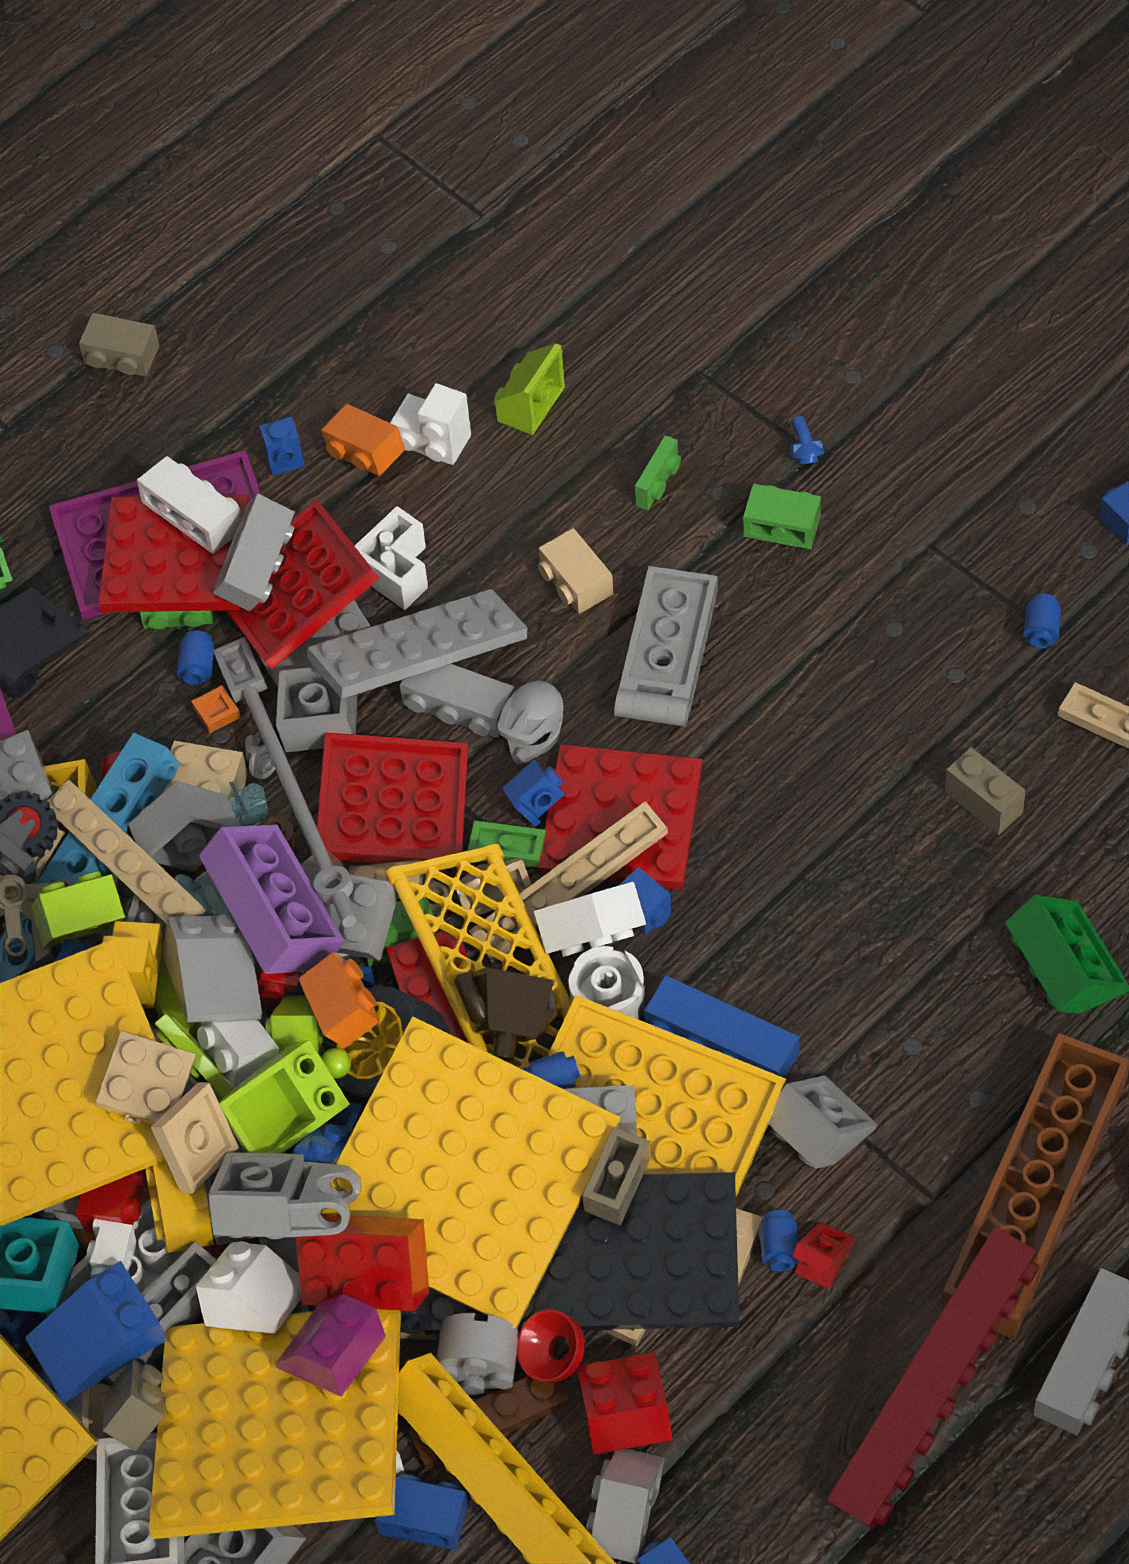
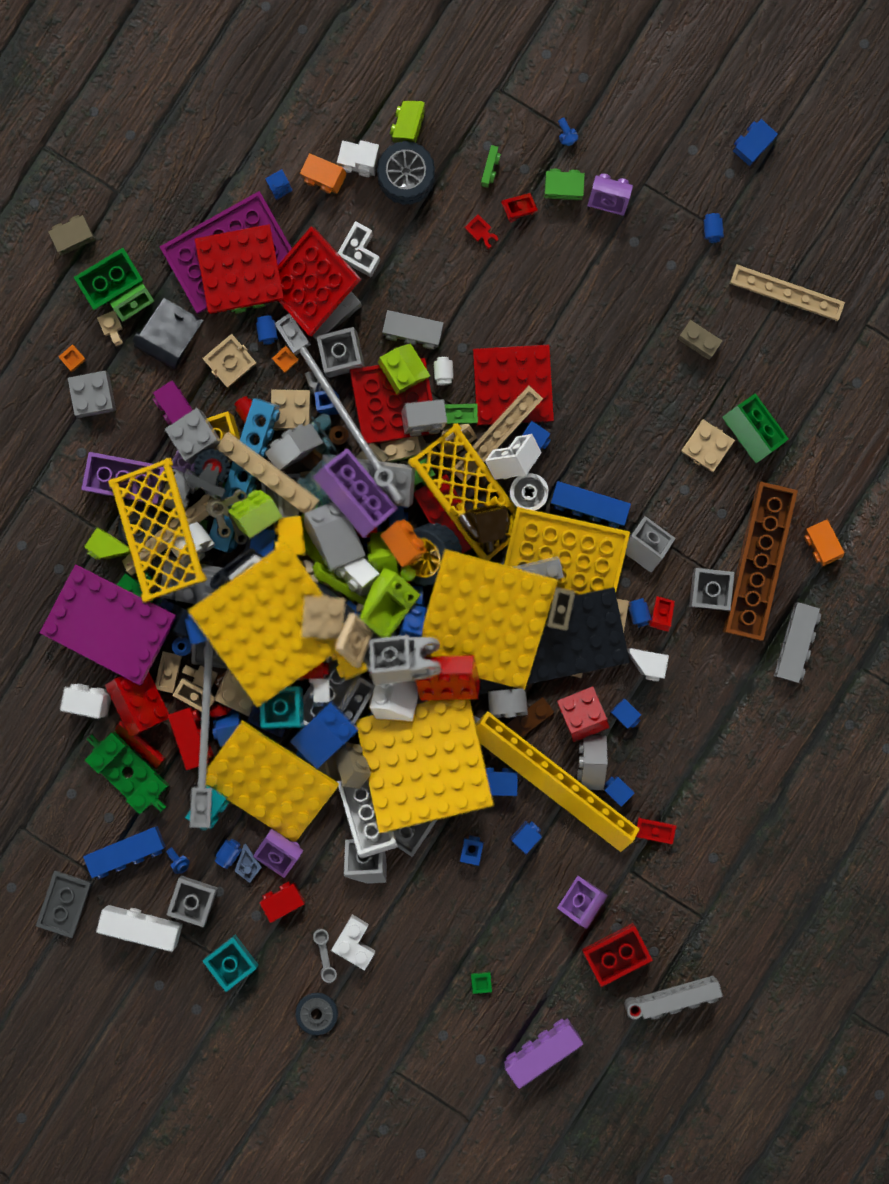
camera: 20 degrees left, 30 degrees up
(116, 696) = (229, 360): none -> tan plate
(119, 344) = (168, 130): dark tan brick -> none
(189, 504) = (243, 242): white brick -> none
(254, 553) = (286, 269): light grey brick -> none
(263, 773) = (324, 404): none -> blue brick
(334, 1344) = (442, 724): magenta slope -> none
(416, 643) = (386, 305): light grey plate -> none
(420, 743) = (403, 368): none -> lime slope
(436, 815) = (424, 417): none -> light grey brick
(496, 769) = (443, 371): none -> white brick
(506, 456) = (406, 172): none -> wheel
(530, 715) = (456, 339): light grey helmet -> none
(534, 791) = (467, 383): blue brick -> none
(537, 1345) = (537, 698): red piece -> none
(556, 1070) = (515, 555): blue brick -> none
(575, 571) = (458, 239): tan brick -> none
(621, 565) = (479, 229): none -> red plate
(667, 646) = (518, 271): light grey hinge -> none
(693, 535) = (519, 206): none -> red slope
(713, 1425) = (626, 714): none -> blue brick
(778, 1327) = (649, 663): none -> white slope
(861, 542) = (610, 194): none -> medium lavender brick
(930, 1217) = (711, 589): none -> light grey brick
(933, 1379) = (728, 677): dark red brick -> none
(970, 973) = (707, 445): none -> tan plate

